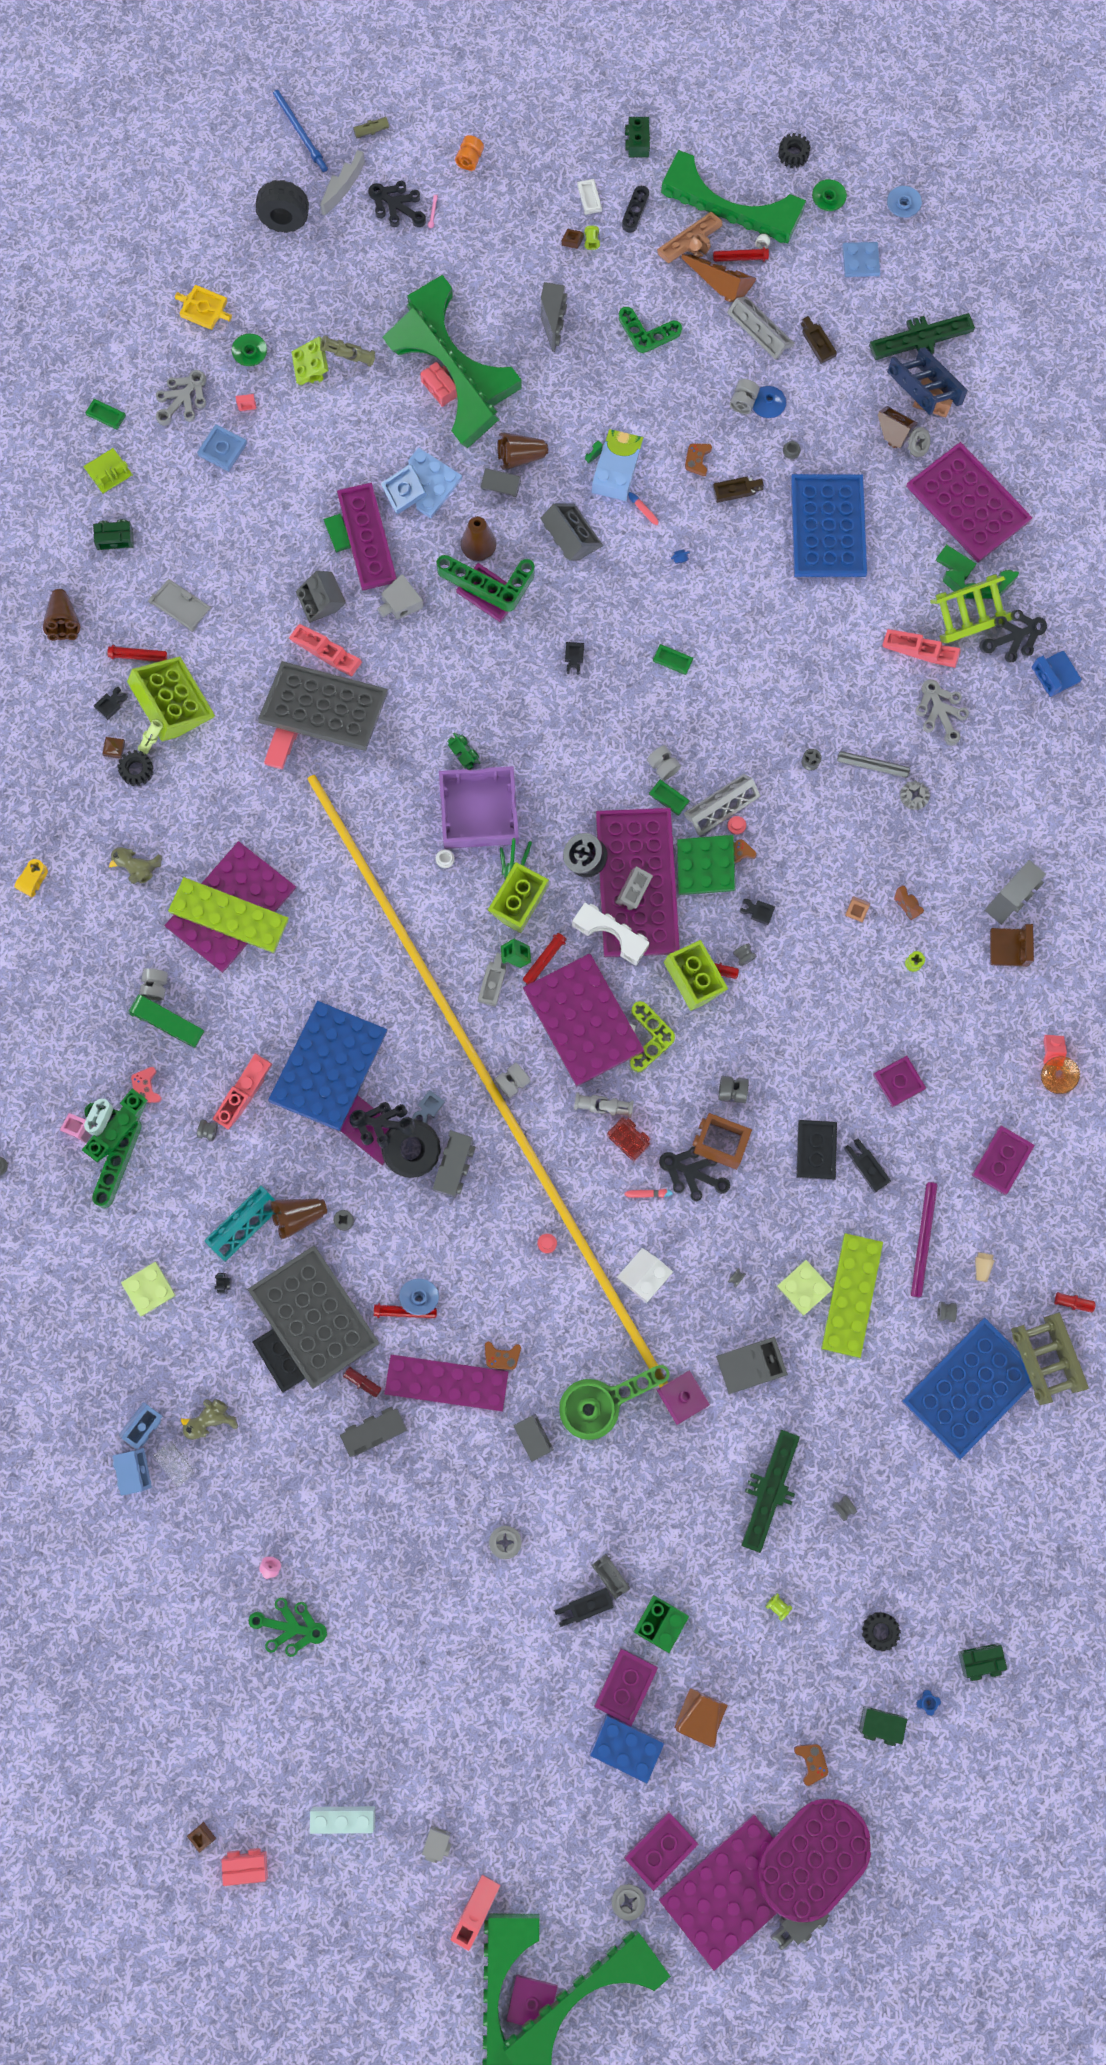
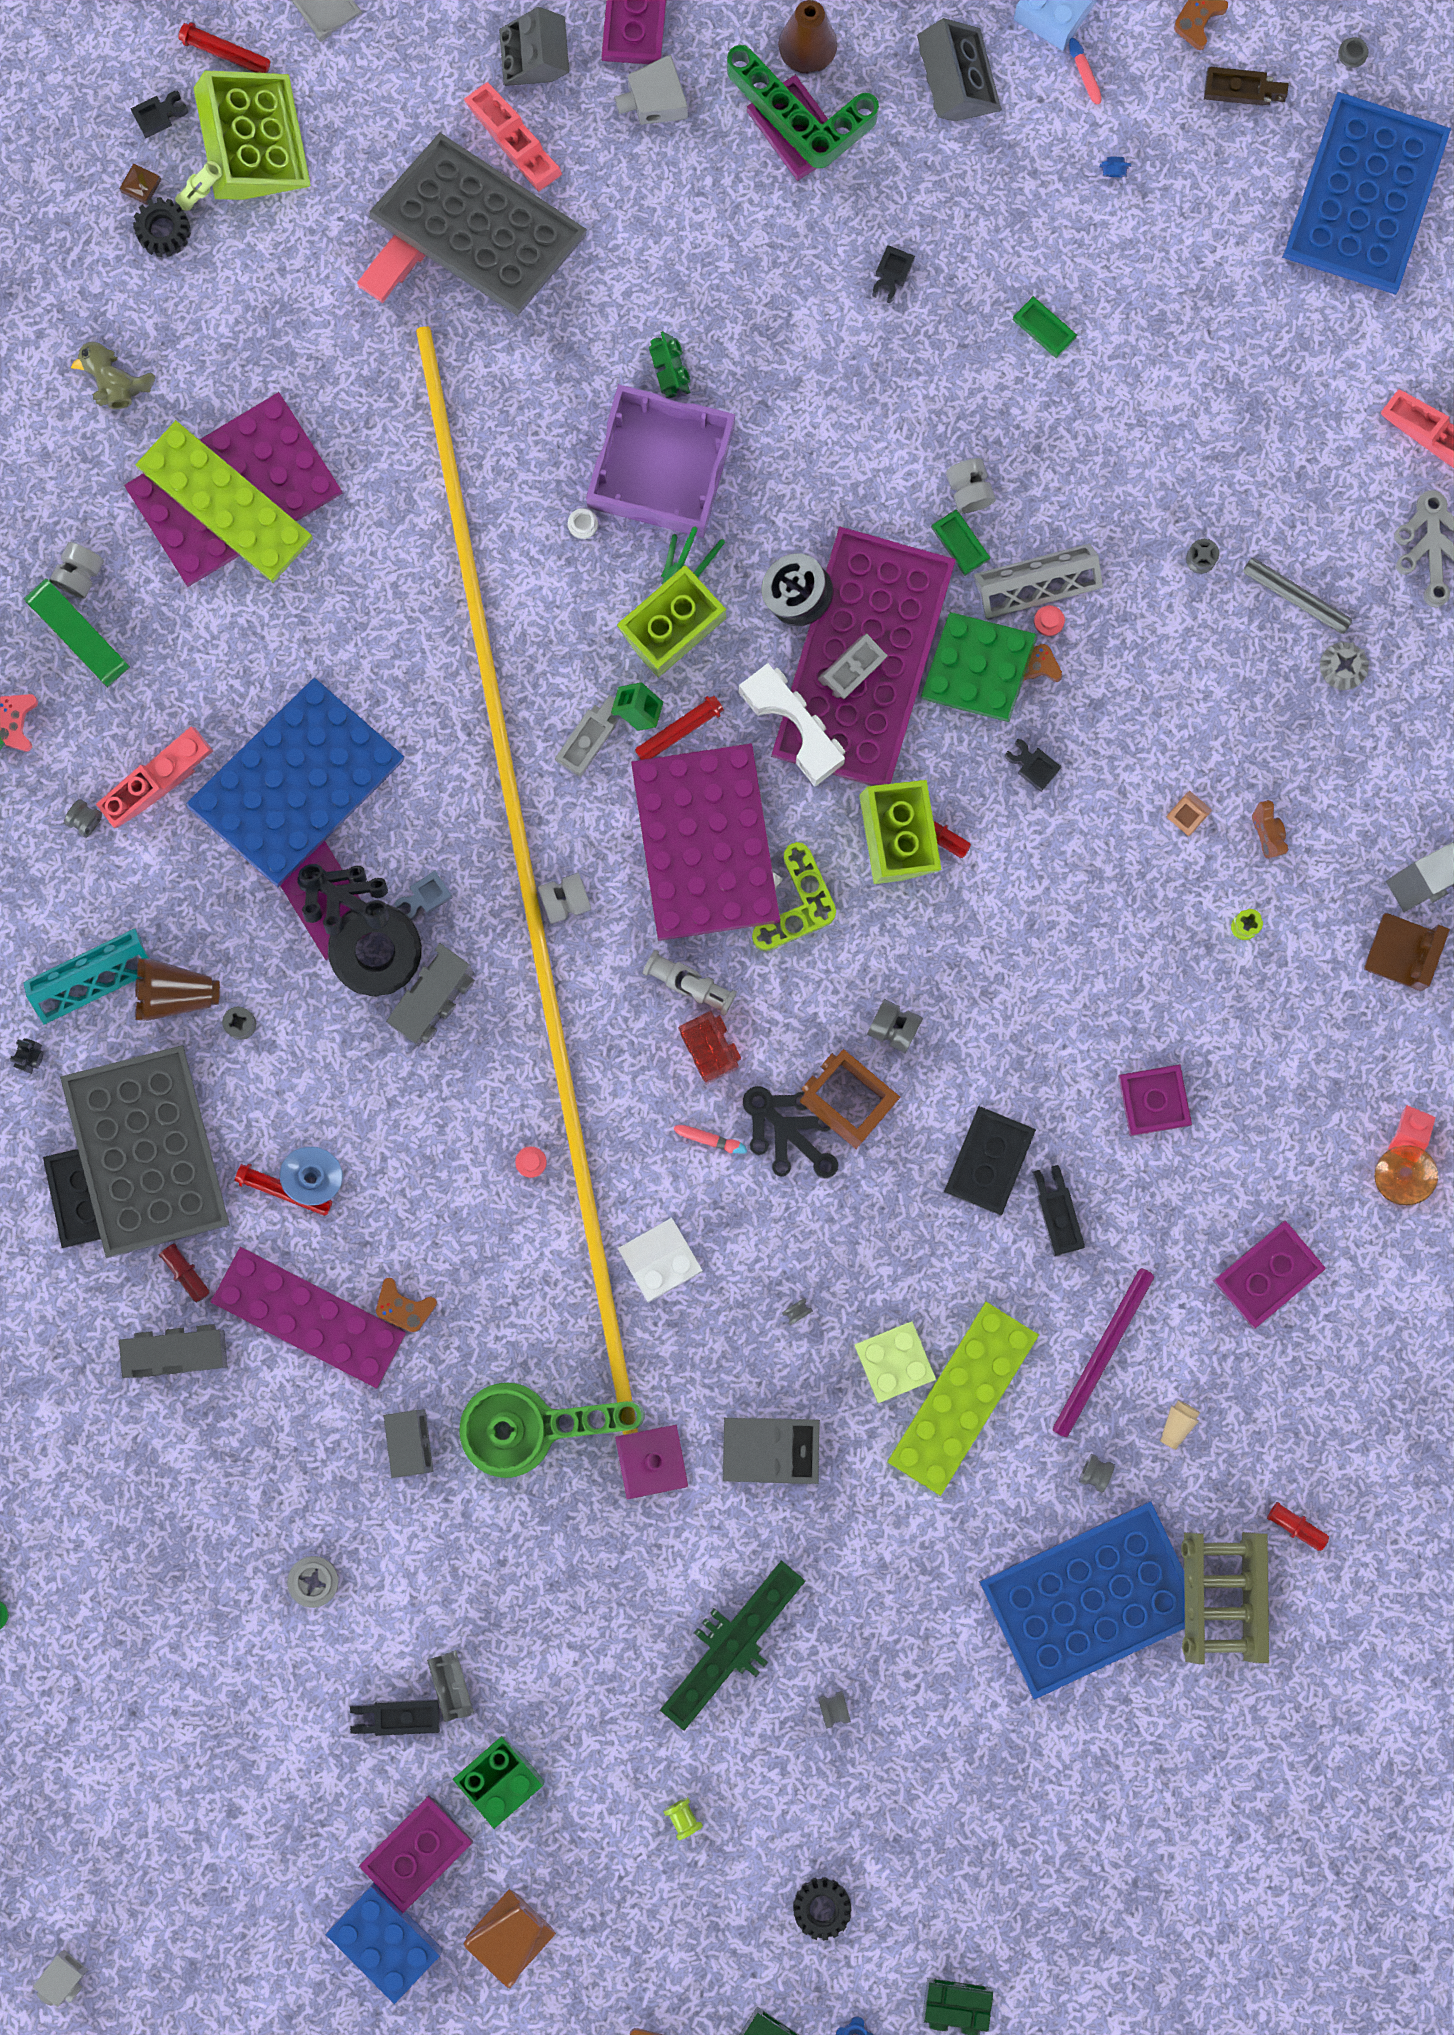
camera: 20 degrees right, 5 degrees up
(744, 954) = (988, 825): dark grey wheel -> none

